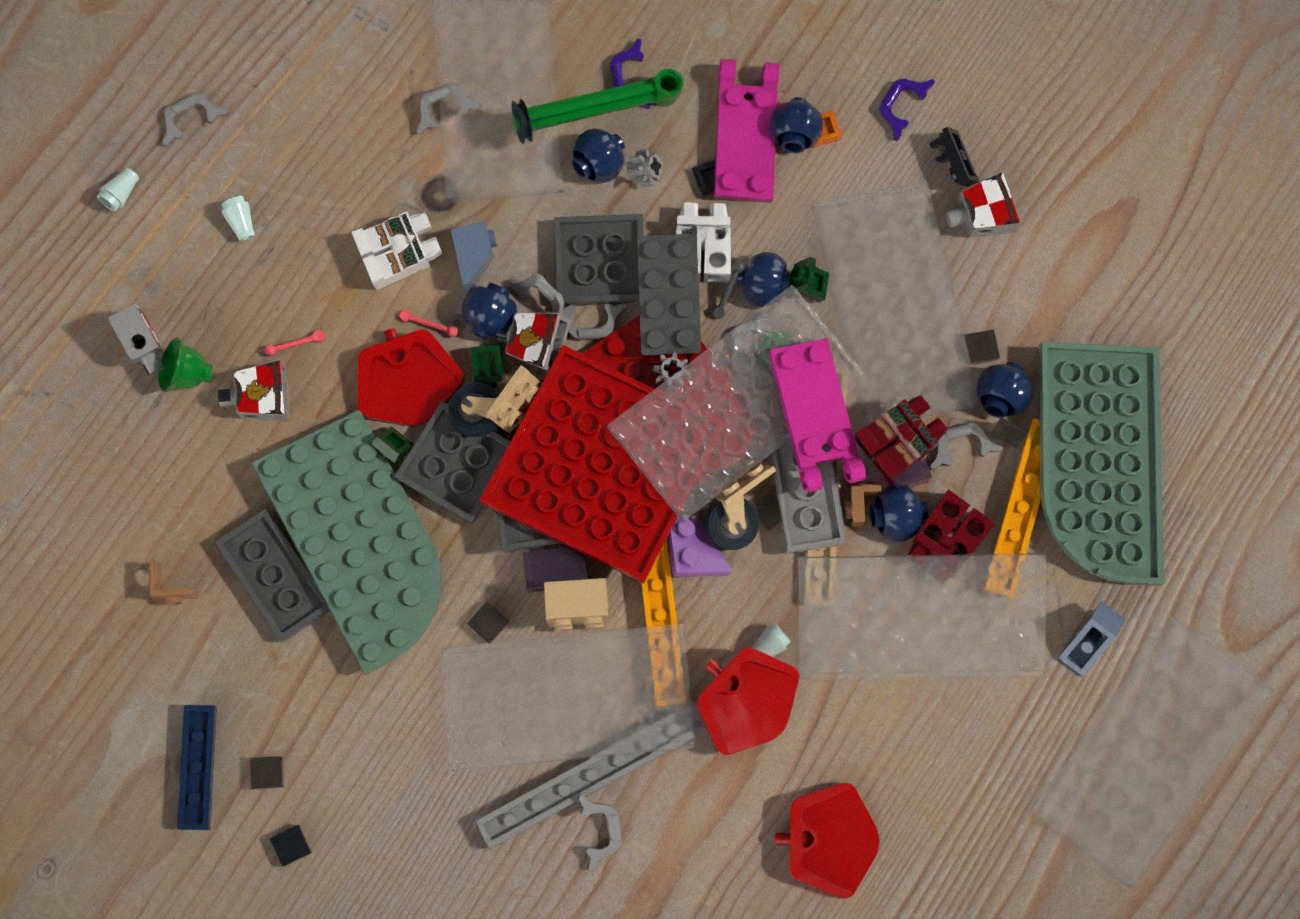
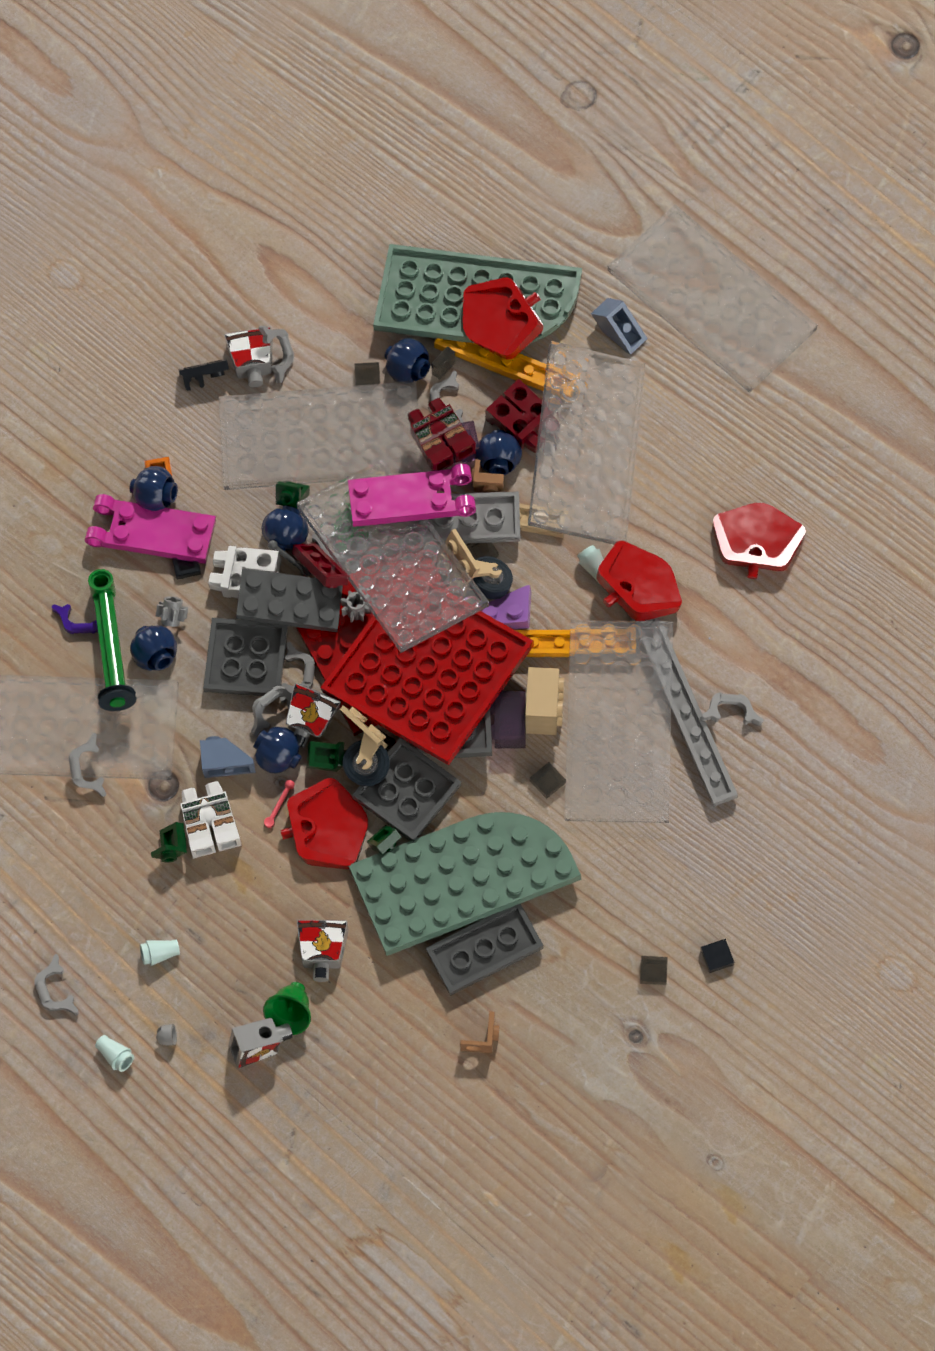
camera: 80 degrees left, 10 degrees down
(144, 243) = (167, 1035): none -> light grey hinge
(197, 767) = (643, 1025): dark blue plate -> none
(318, 336) = (276, 897): coral hinge -> none
(363, 214) = (172, 843): none -> dark green bracket
(716, 323) = (320, 565): none -> dark red plate
(897, 87) = (148, 421): dark purple helmet -> none
(1001, 247) = (288, 354): none -> light grey helmet
(1075, 491) = (500, 317): none -> red animal

